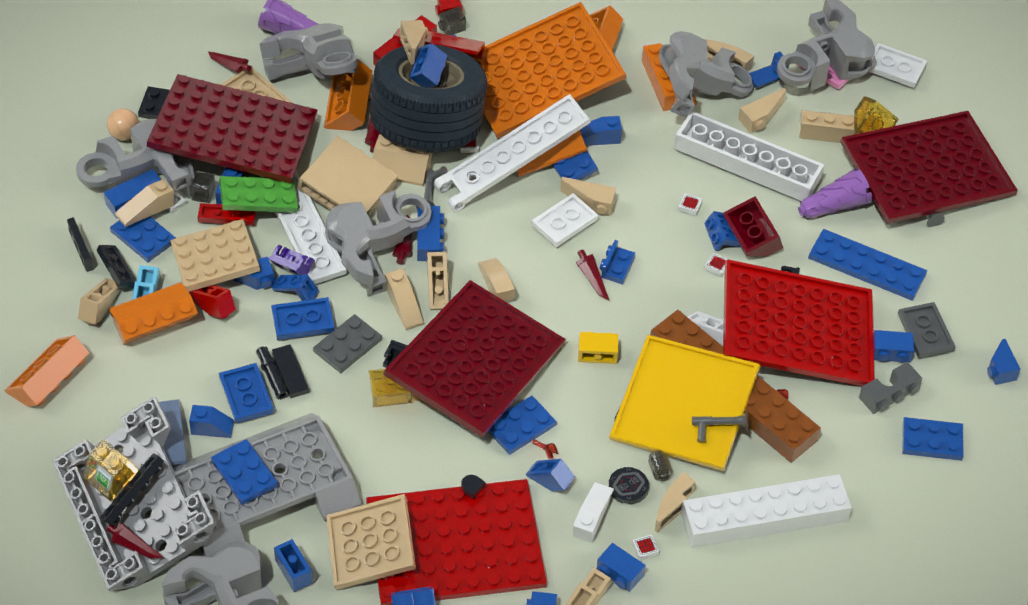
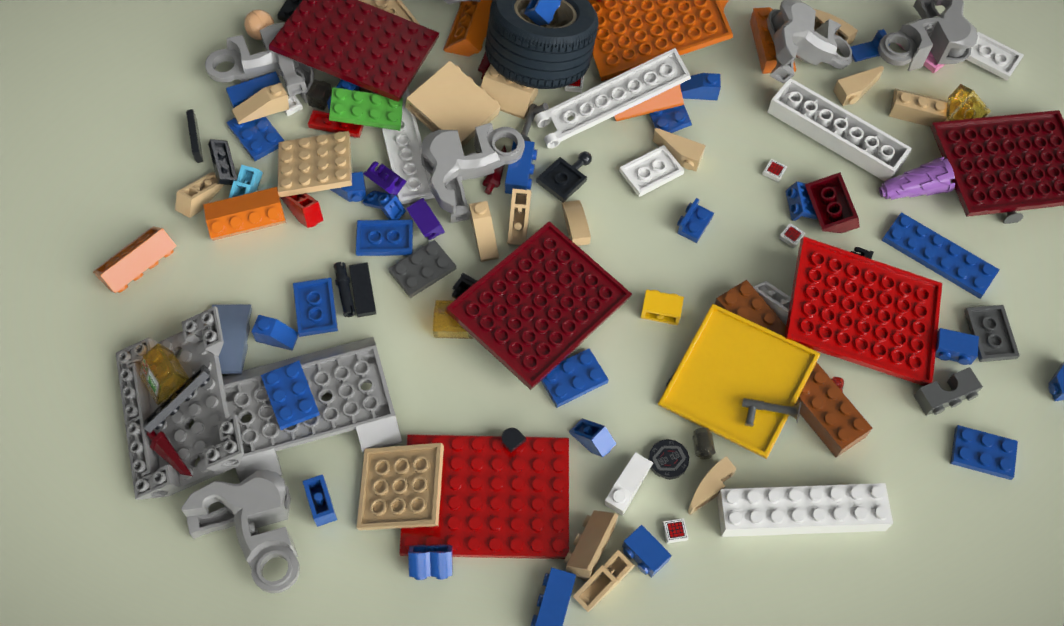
camera: 10 degrees right, 10 degrees up
(342, 295) = (425, 219): none -> dark purple hinge
(475, 238) = (564, 179): none -> black plate
(549, 448) = (596, 407): clear red hand -> none
(567, 566) = (590, 544): none -> tan slope
(590, 270) = (668, 226): dark red bar -> none

